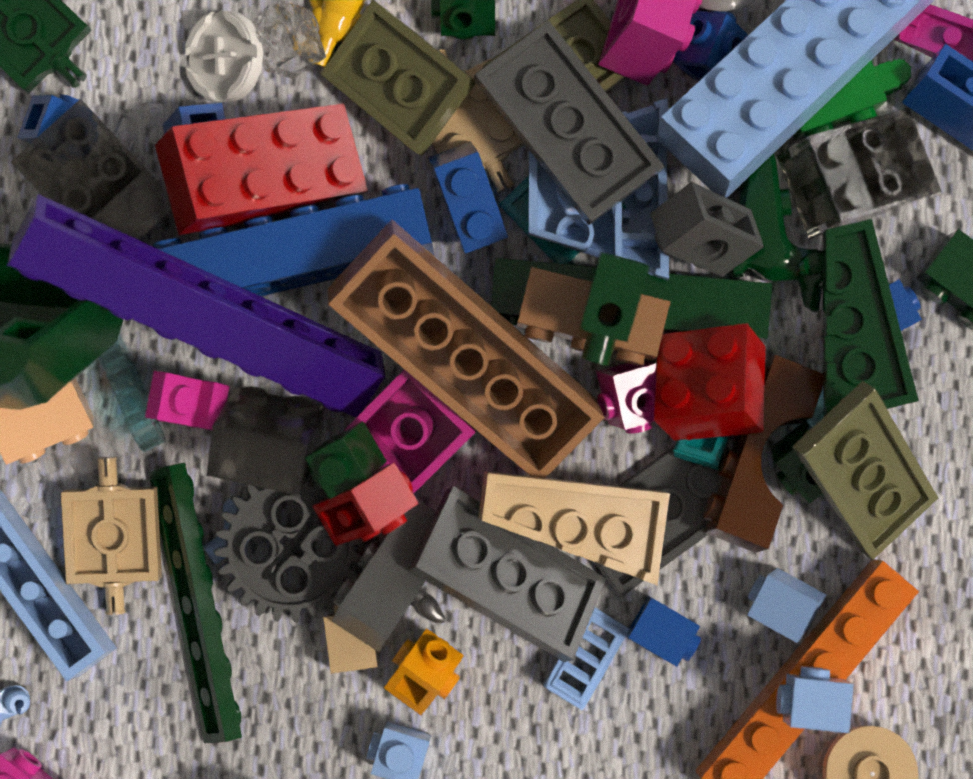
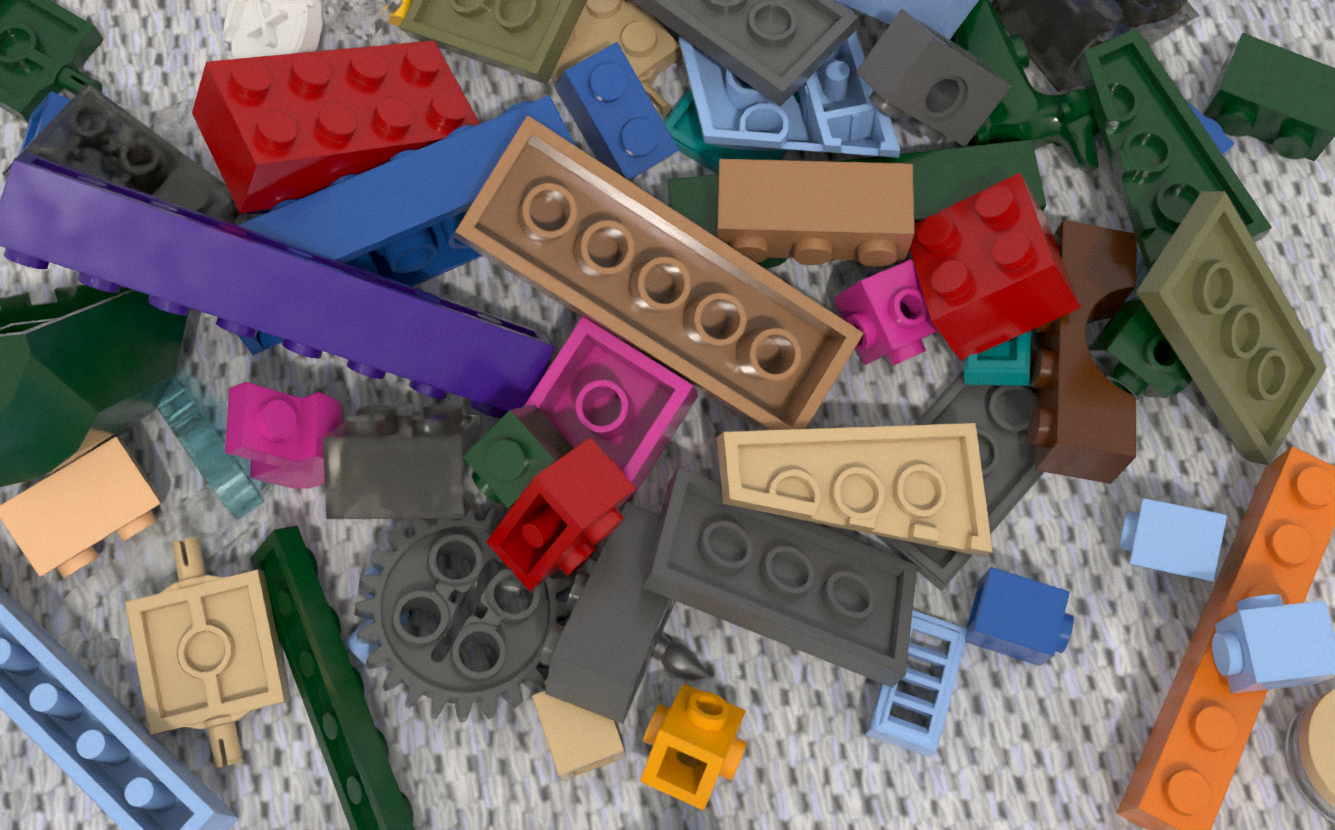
camera: 15 degrees left, 15 degrees down
(616, 282) = (841, 155): dark green torso -> none

